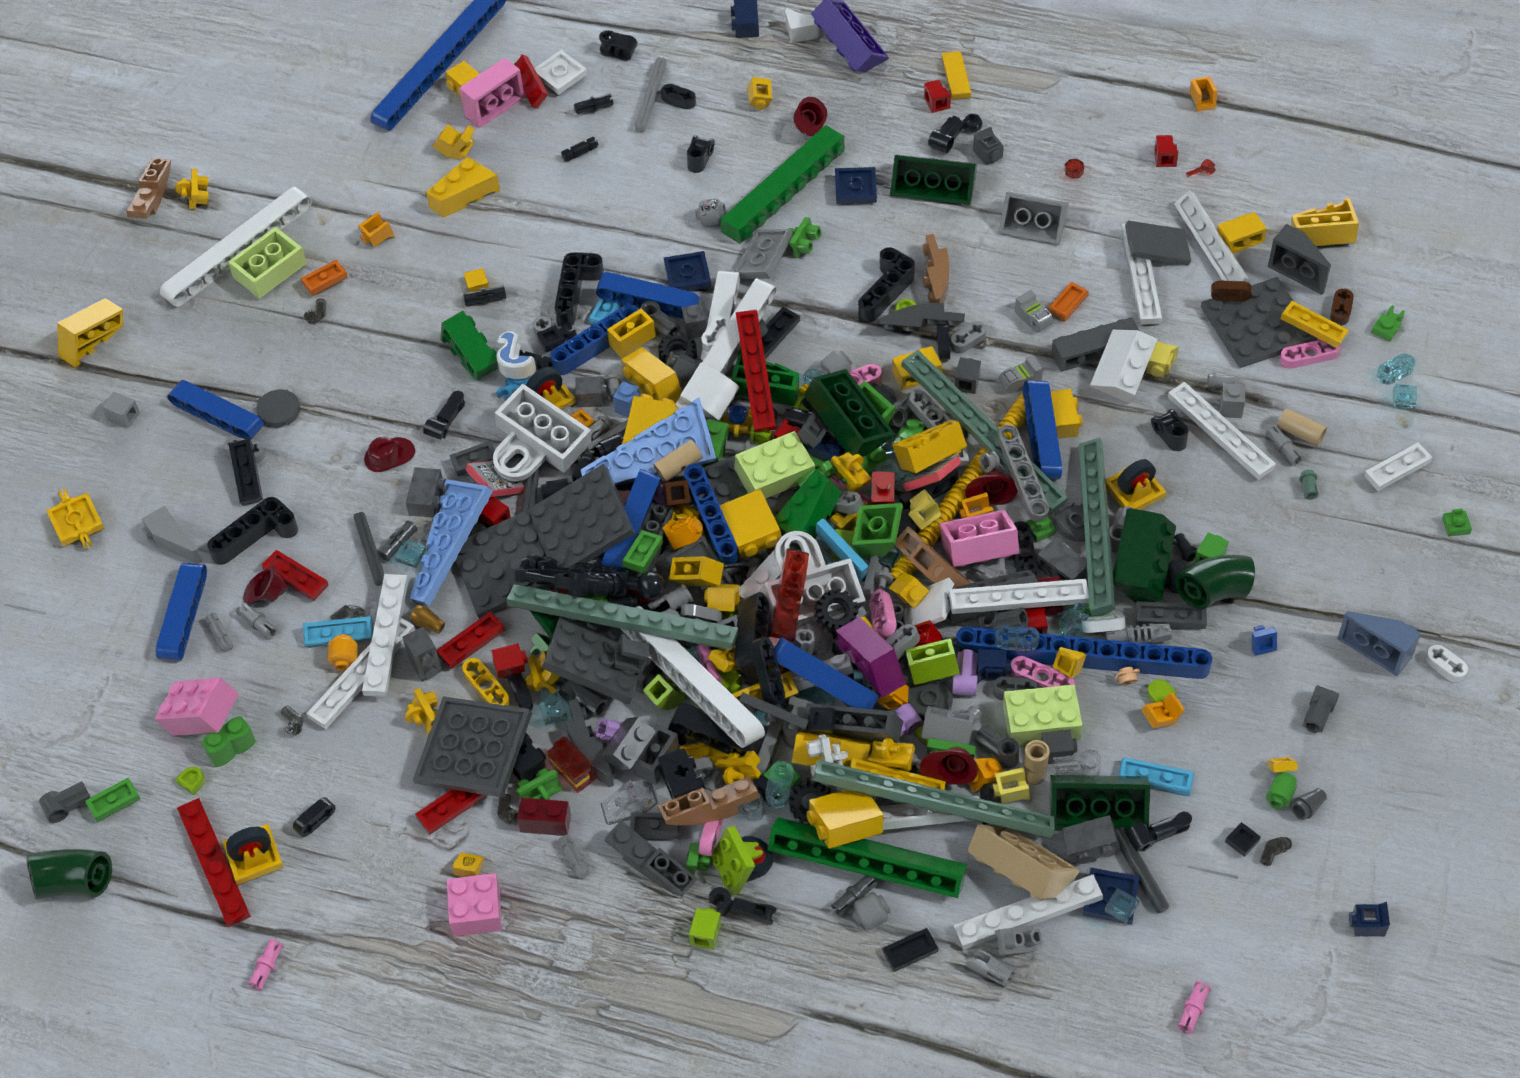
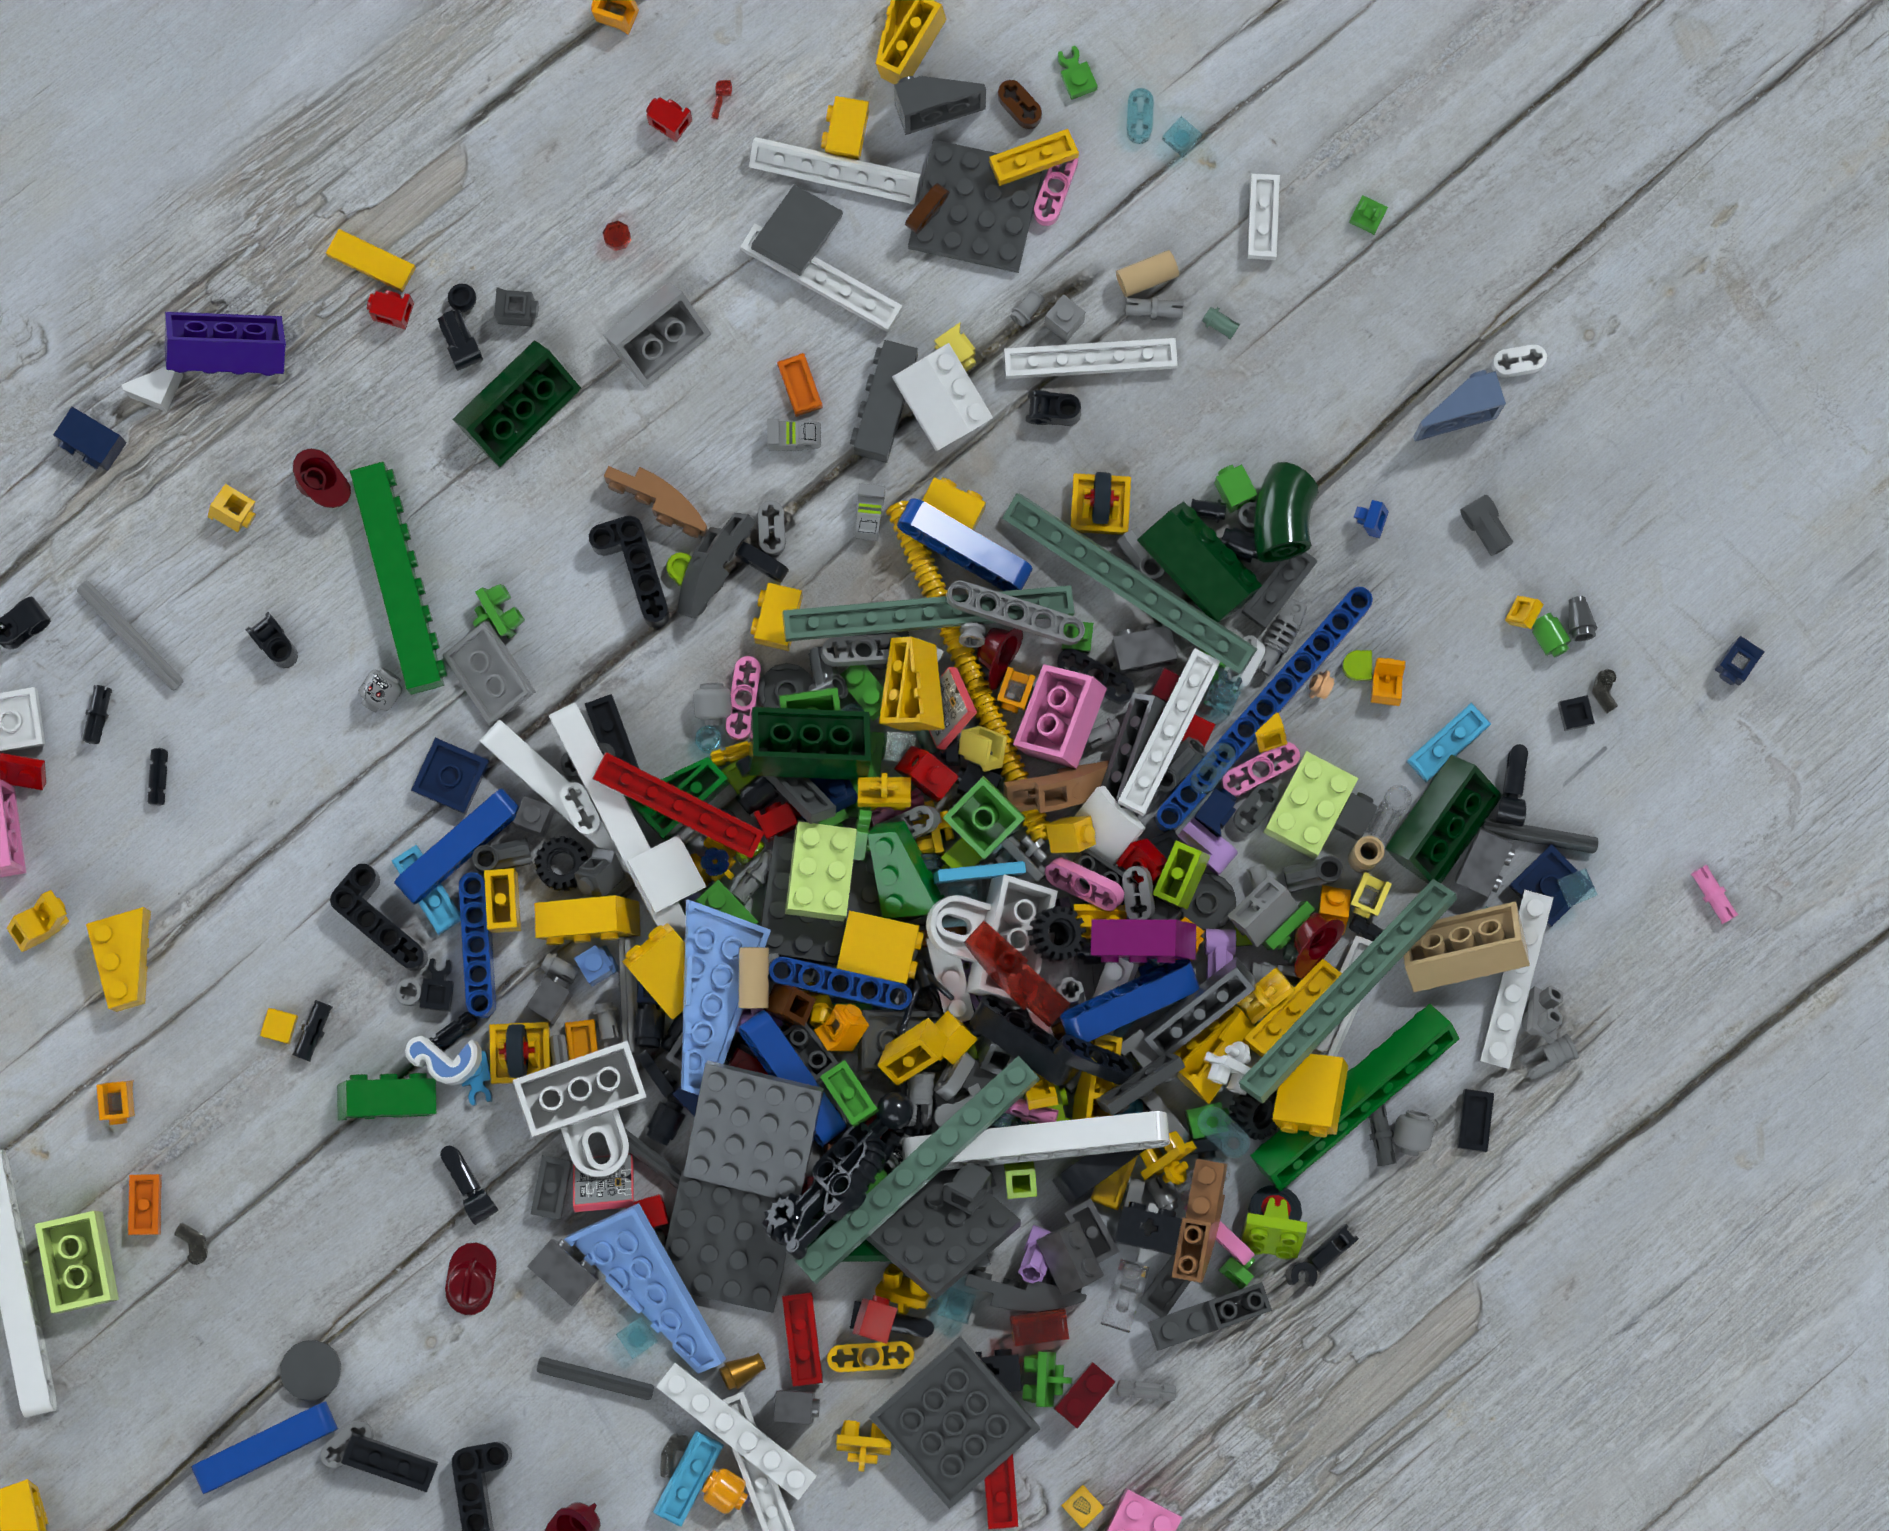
camera: 60 degrees left, 25 degrees up
(296, 575) = (575, 1484): red plate -> none
(396, 540) = (600, 1322): dark grey pin -> none
(505, 812) = (1052, 1429): clear smoke arm -> none
(541, 643) = (863, 1269): bright green tile -> none
(678, 96) = (155, 599): black beam -> none
(705, 928) = (1322, 1309): lime brick -> none
(822, 720) = (1185, 1040): black plate -> none
(855, 185) = (459, 497): dark blue plate -> none
(968, 375) = (827, 568): dark grey brick -> none
(1070, 522) = (1095, 601): dark grey tile -> none

